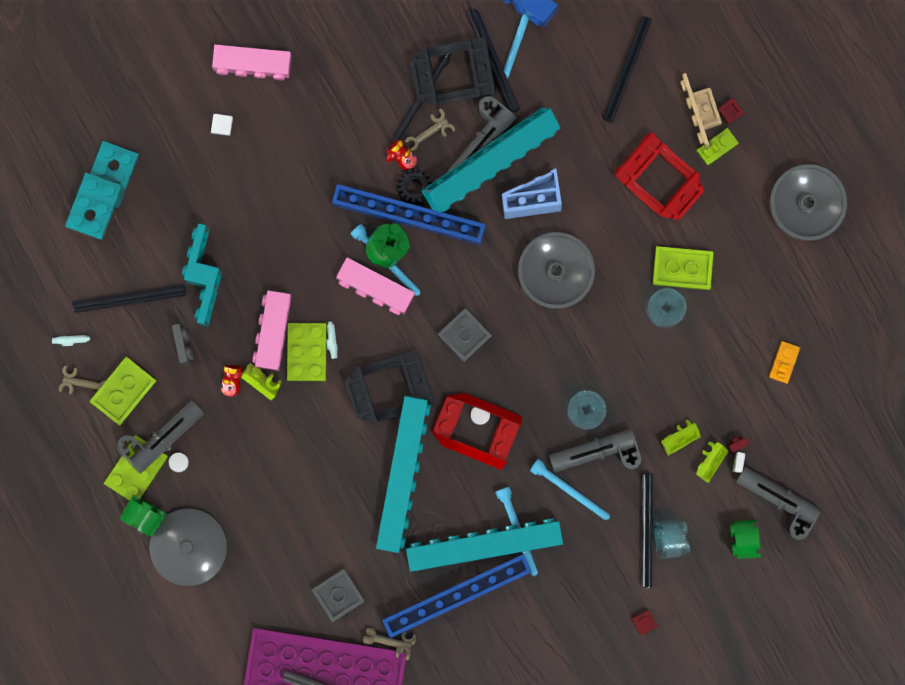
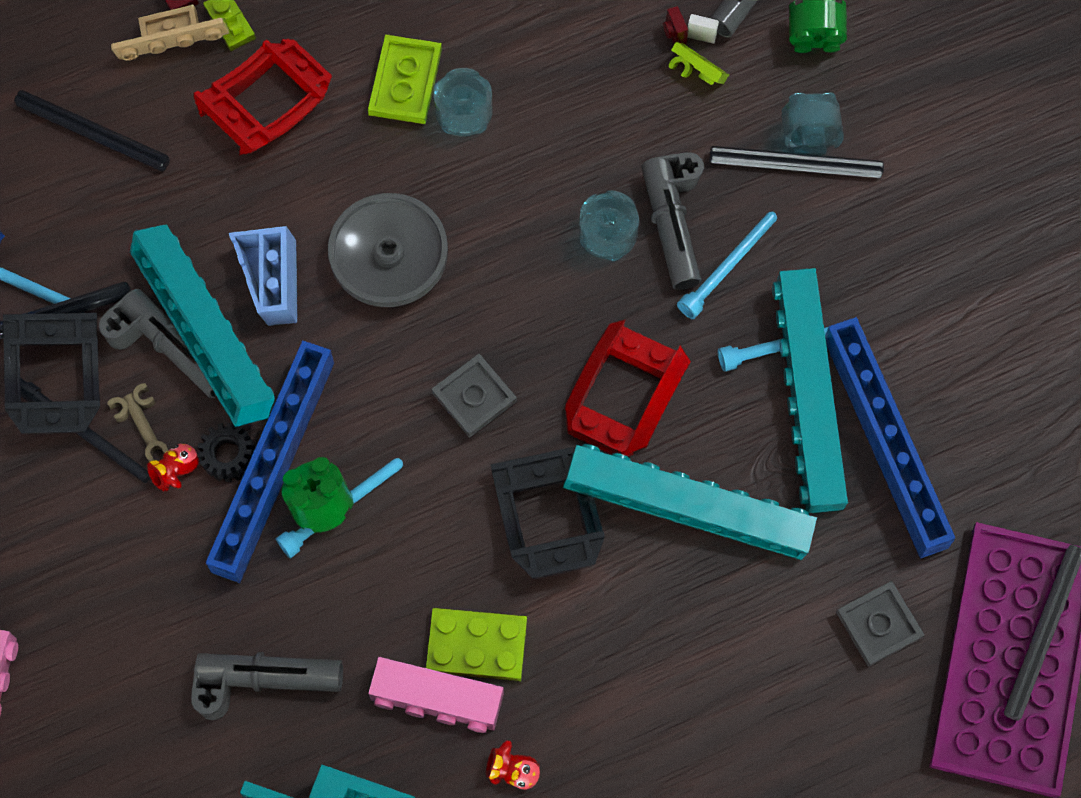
camera: 80 degrees left, 15 degrees down
(222, 124) = (76, 754): white tile -> none
(259, 381) = (512, 726): lime plate -> none
(276, 204) = (232, 671): none -> dark grey piece
(331, 341) = (464, 603): light aqua piece -> none
(375, 286) = (380, 524): bright pink brick -> none
(403, 645) = (961, 526): dark tan bar -> none
(479, 417) = (604, 385): white tile -> none
(644, 622) = (935, 177): dark red plate -> none
(681, 438) = (658, 97): lime plate -> none

